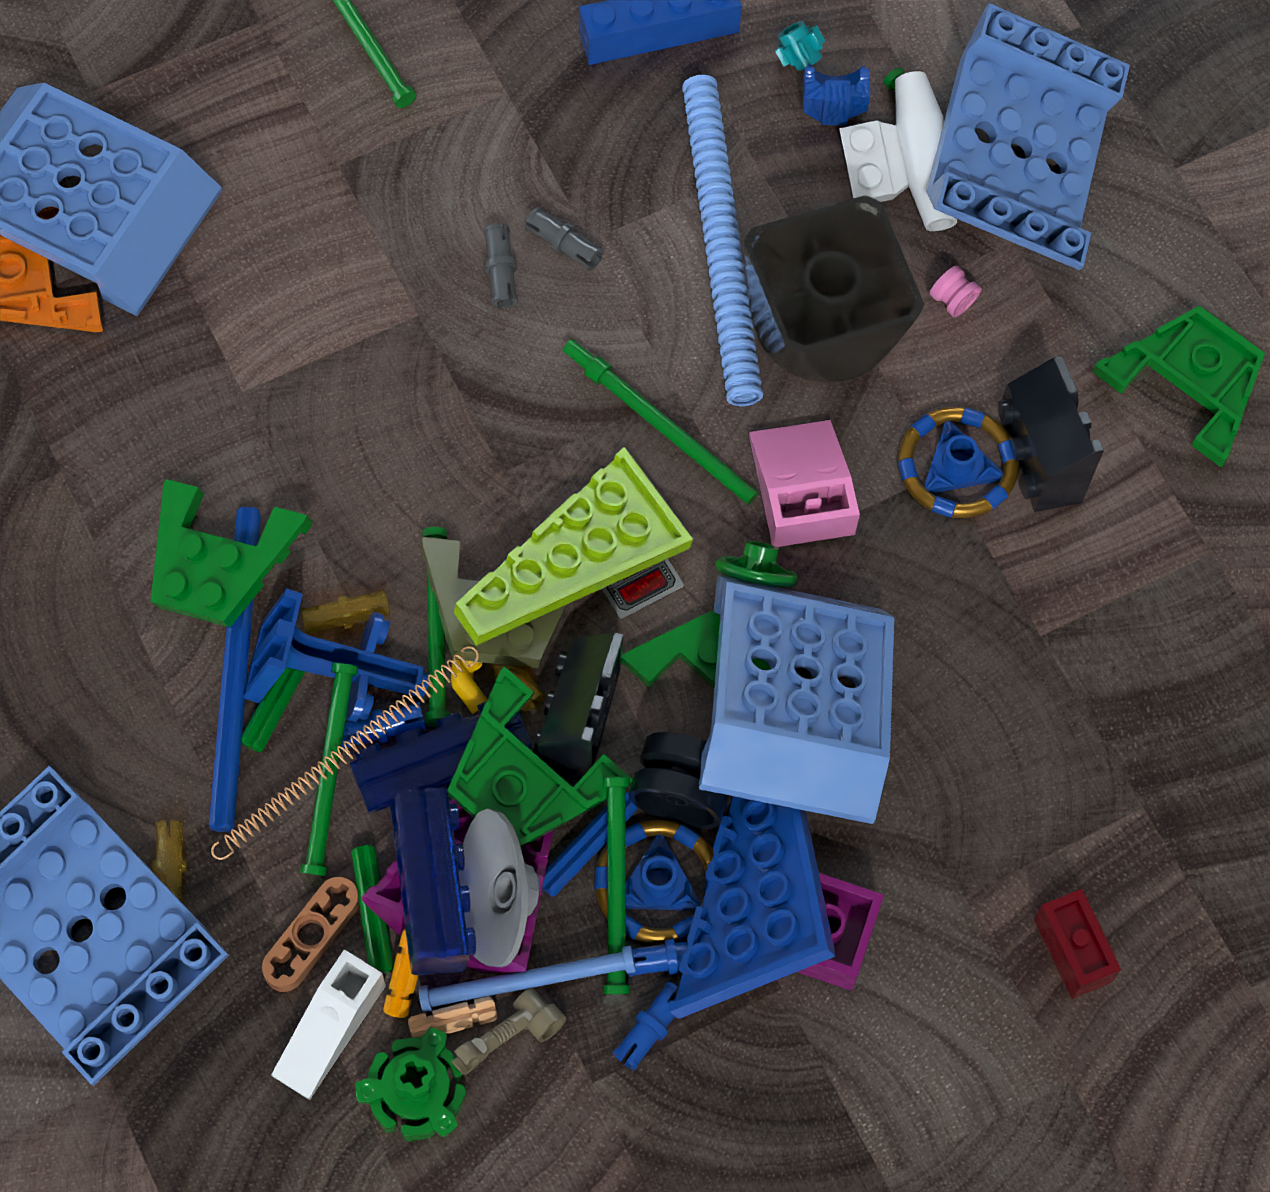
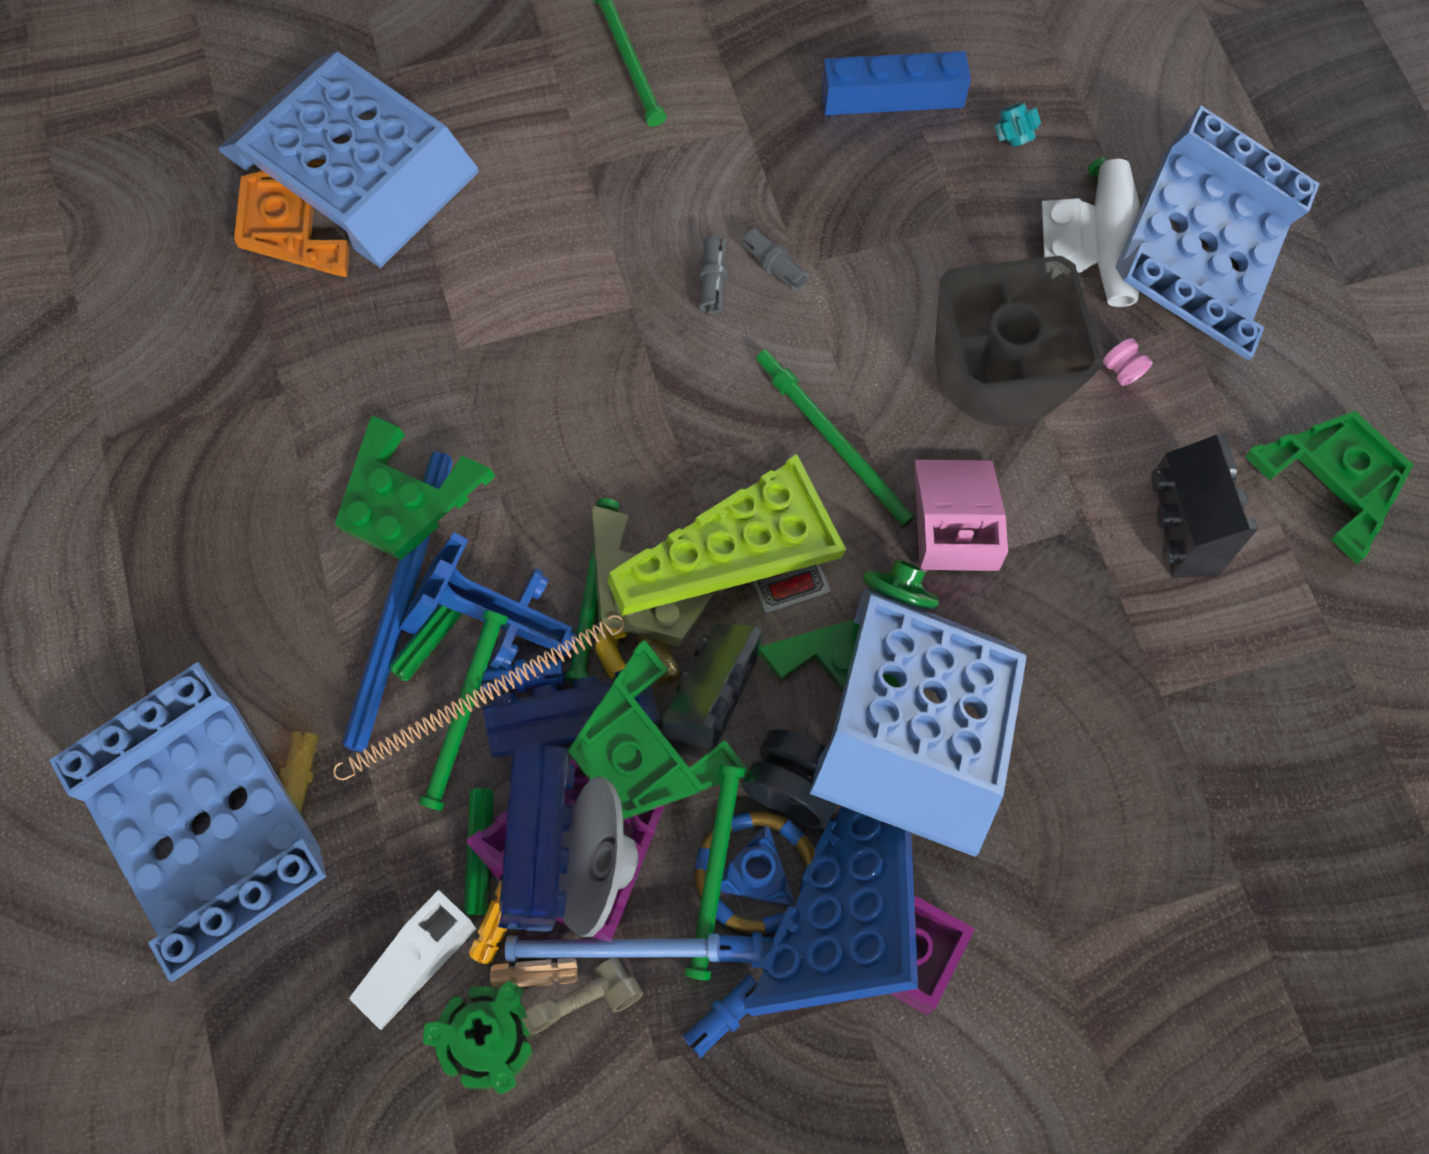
camera: 10 degrees right, 0 degrees up
(280, 951) = (416, 846): nougat beam -> none
(344, 611) = (509, 563): clear yellow pin -> none
(581, 850) = (687, 829): blue axle -> none
(722, 241) = (918, 287): light blue piece -> none
(835, 98) = (1043, 175): blue hair -> none
(958, 463) = (1106, 520): blue piece -> none
(1077, 943) = (1158, 1009): dark red panel -> none

